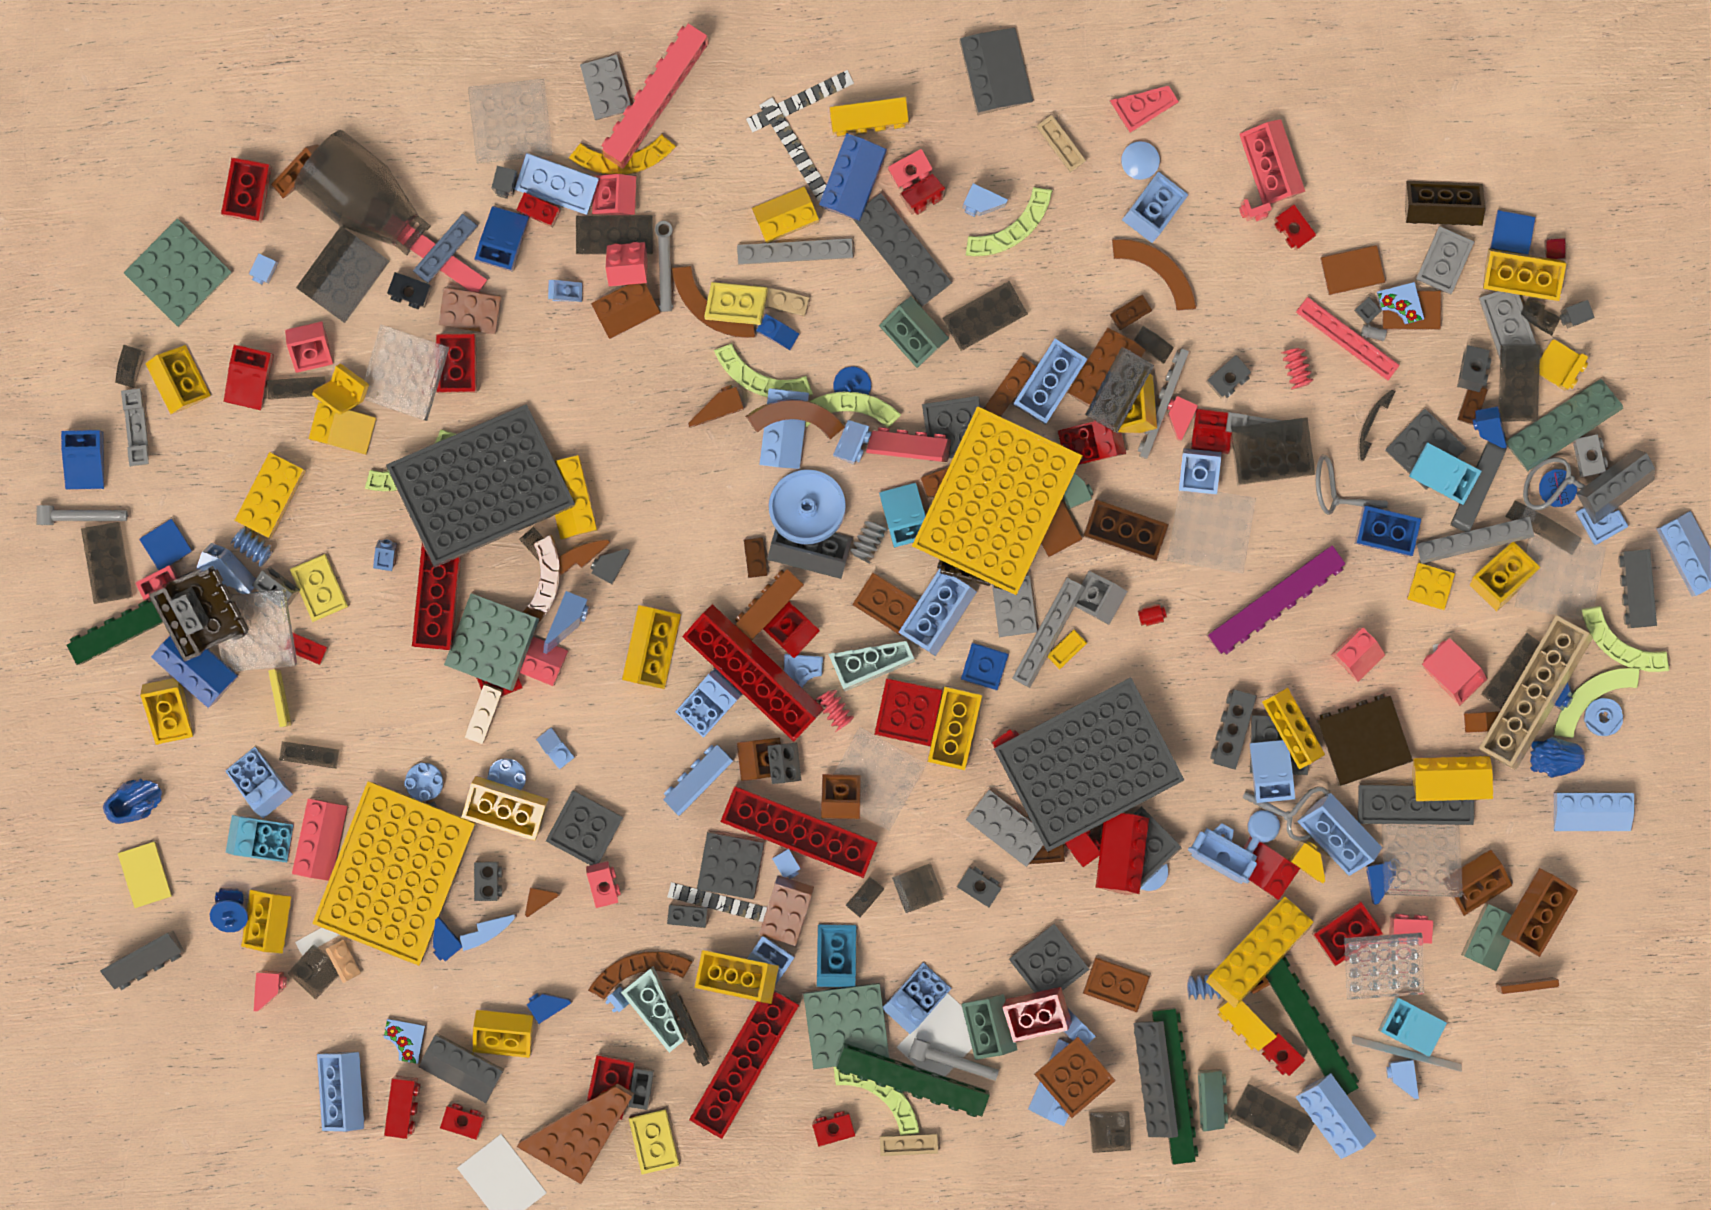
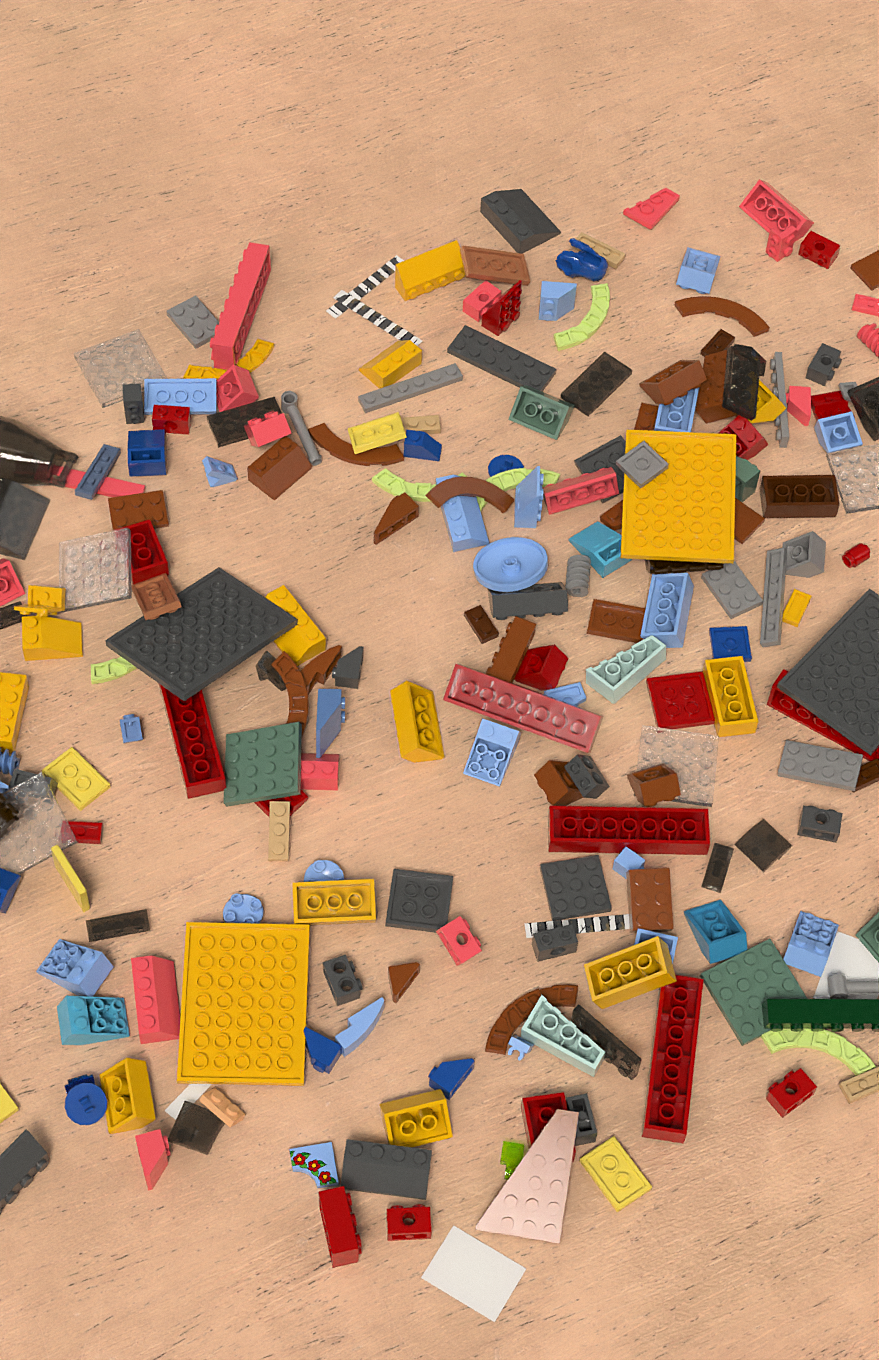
camera: 25 degrees left, 30 degrees down
(340, 1091) = (266, 1239): light blue slope -> none
(401, 282) = (76, 512): black brick -> none
(451, 426) = (156, 597): none -> nougat plate
(555, 748) = (361, 841): light blue slope -> none
(572, 1094) = (511, 1156): none -> clear neon green plate
(698, 780) = (511, 818): light blue slope -> none
(835, 709) = (612, 719): coral piece -> none
(852, 177) = (436, 317): blue slope -> none
(938, 134) = (494, 265): none -> nougat plate
(972, 457) = (642, 464): none -> light grey plate
(1033, 159) = (582, 264): none -> blue hair
(1054, 358) = (674, 381): none -> dark orange slope
(1140, 160) = (669, 244): light blue dish -> none

